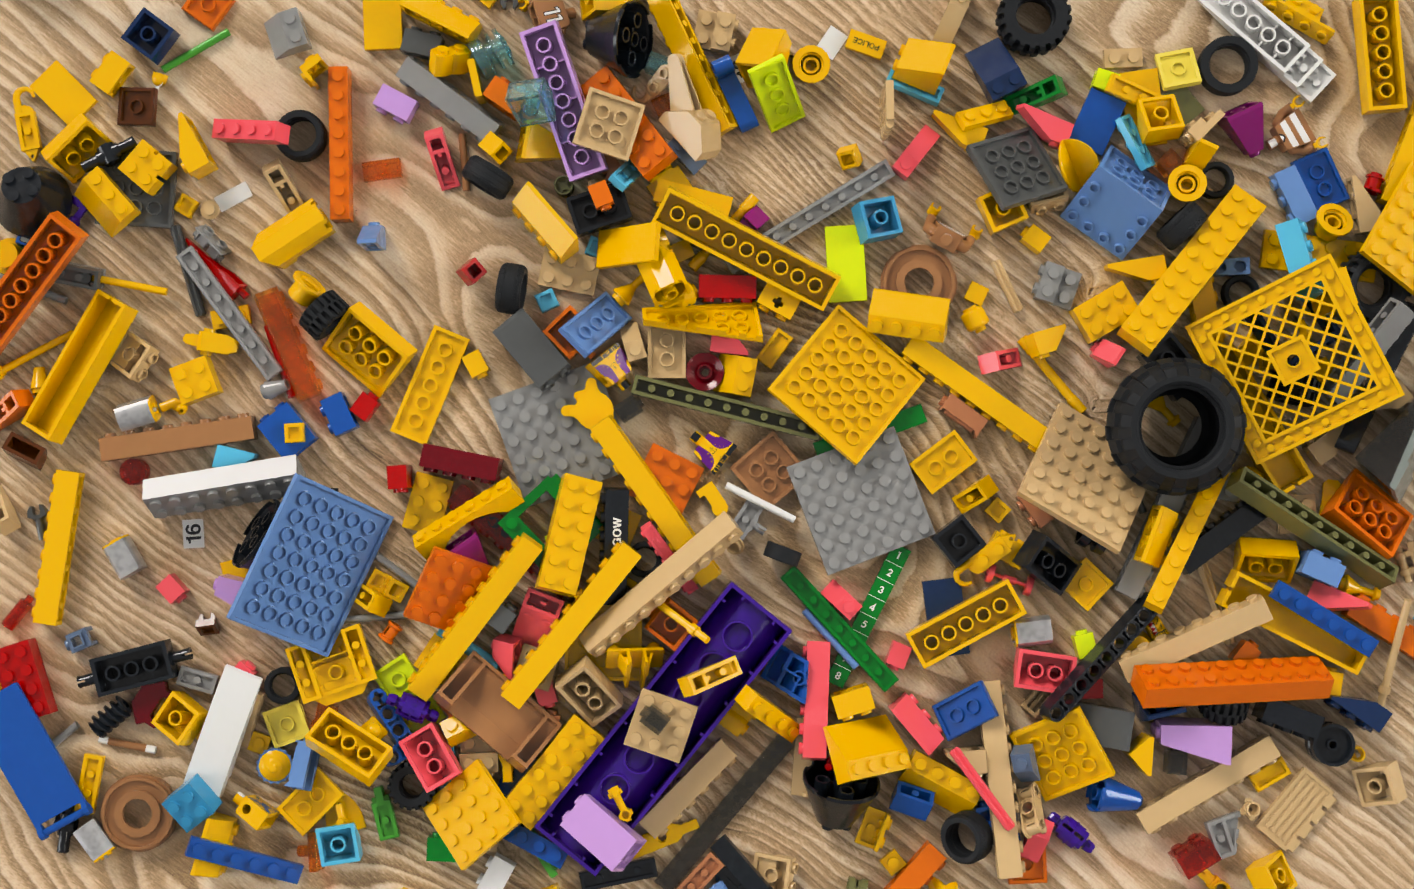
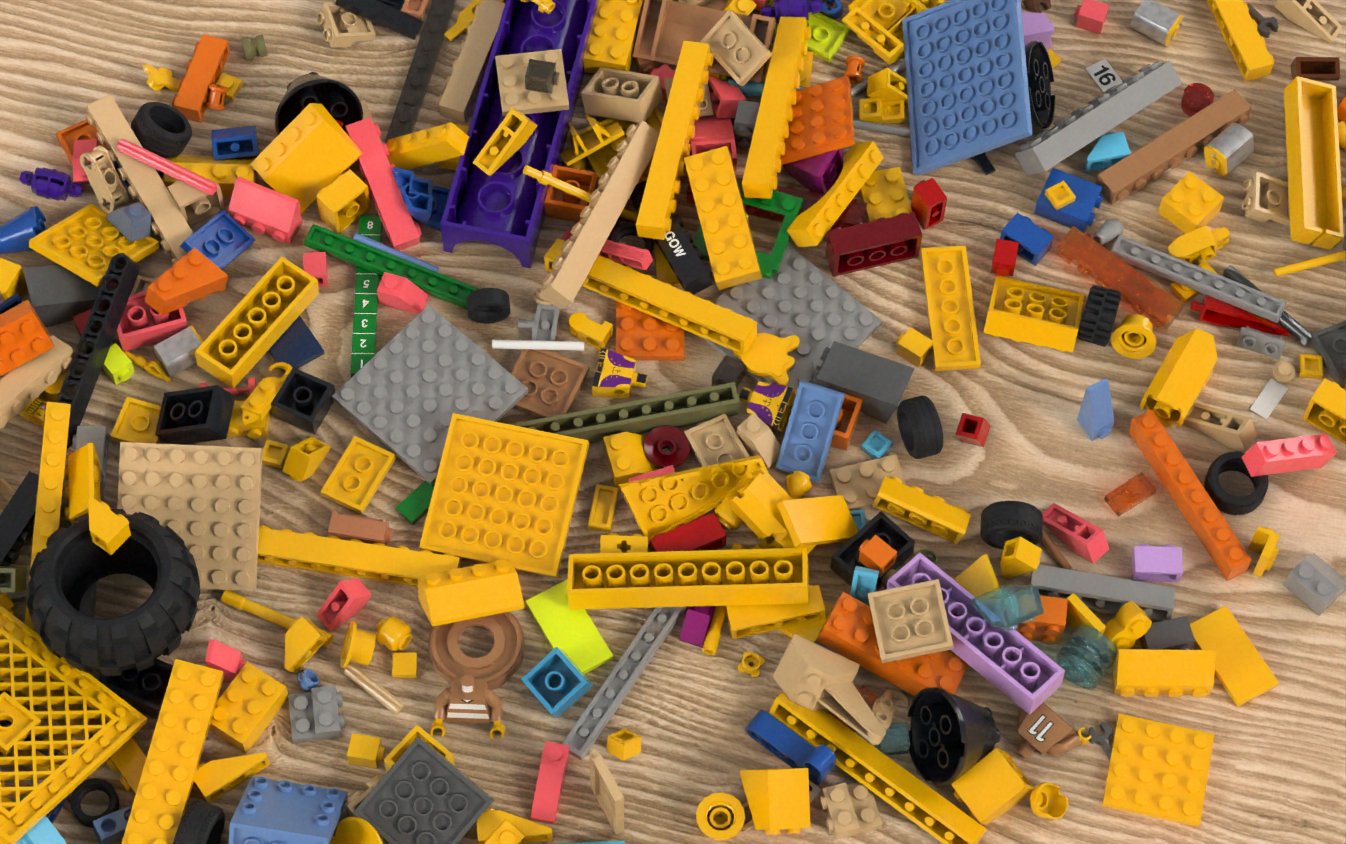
camera: 150 degrees right, 25 degrees down
(174, 404) = (1204, 174): yellow arm -> none
(479, 683) = (736, 48): none -> tan plate
(729, 168) = (750, 657): none -> yellow plate
(776, 93) = (743, 758): neon yellow tile -> none
(873, 828) = (262, 104): yellow bracket -> none
(909, 849) = (217, 97): none -> orange bush
(1006, 319) = (357, 646): none -> yellow piece
(1009, 678) = (184, 282): none -> orange wedge
(1047, 313) = (307, 680): none -> medium blue plate
(1057, 631) = (152, 367): none -> yellow hand
(1173, 460) = (106, 527): none -> yellow slope

